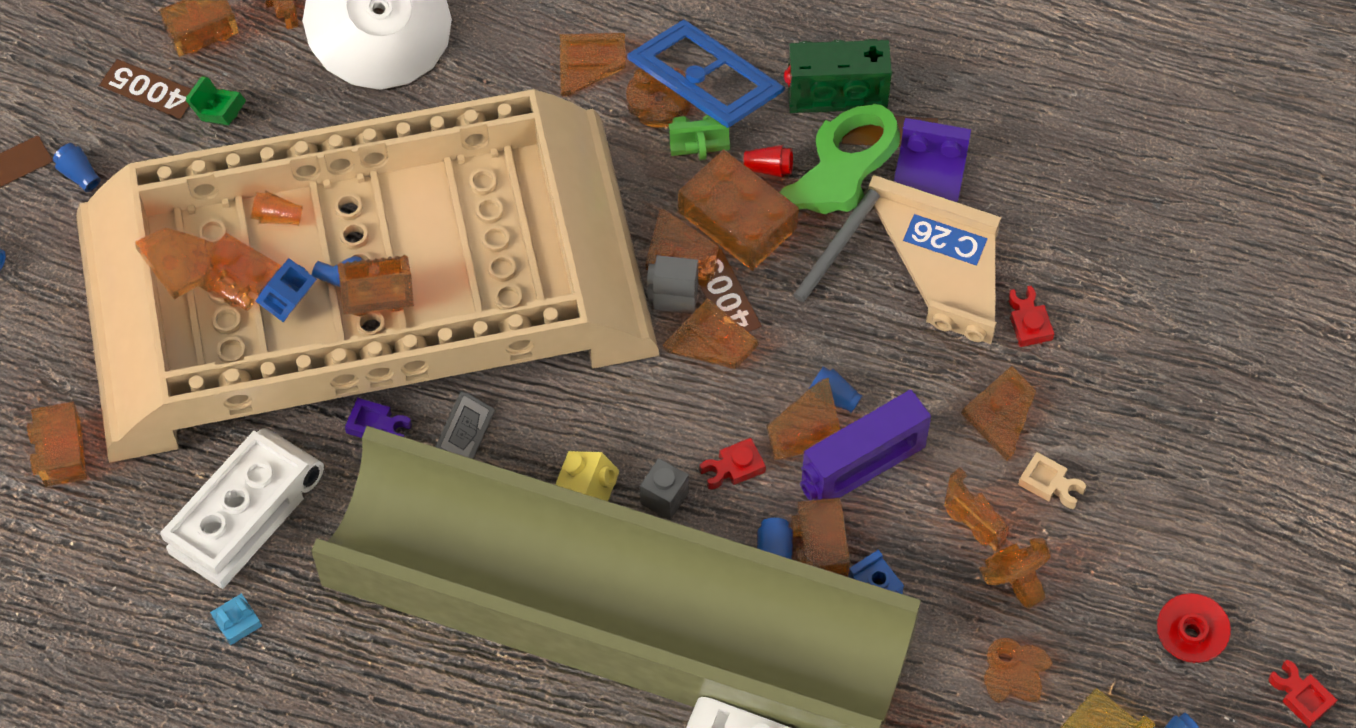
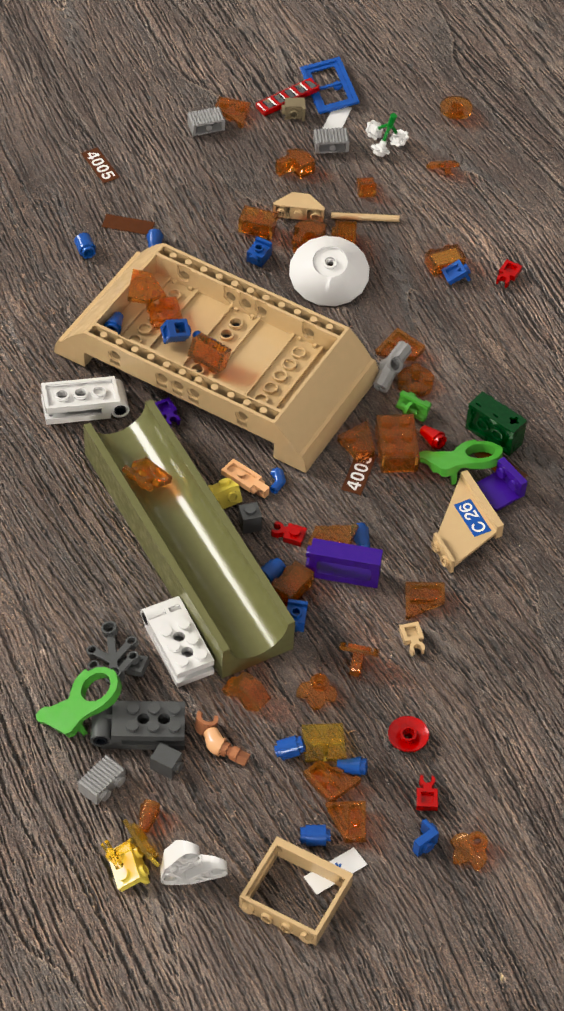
camera: 40 degrees right, 10 degrees down
(58, 444) = (41, 330): clear orange brick -> none
(147, 88) = (214, 235): reddish brown sticker -> none
(182, 348) = (115, 322): none -> blue cone
(214, 104) = (231, 255): green bracket -> none
(236, 619) = (40, 439): dark azure tile -> none
(246, 66) = (259, 252): none -> blue brick
(275, 210) = (204, 302): clear orange cone -> none
(465, 426) = (198, 439): slope -> none
(470, 539) = (147, 474): none -> clear orange plate
(591, 432) = (245, 478): none -> light nougat hinge
(613, 99) = (391, 365): none -> light grey piece
(638, 395) = (279, 476): none -> blue arm
(673, 284) = (336, 448): dark grey brick -> none
(684, 86) = (426, 387): blue door -> none
(712, 338) = (332, 481): clear orange wing -> none
(836, 245) = (424, 486): dark grey bar -> none
(974, 512) = (364, 619): clear orange wing -> none
(1029, 321) = (476, 576): red plate -> none

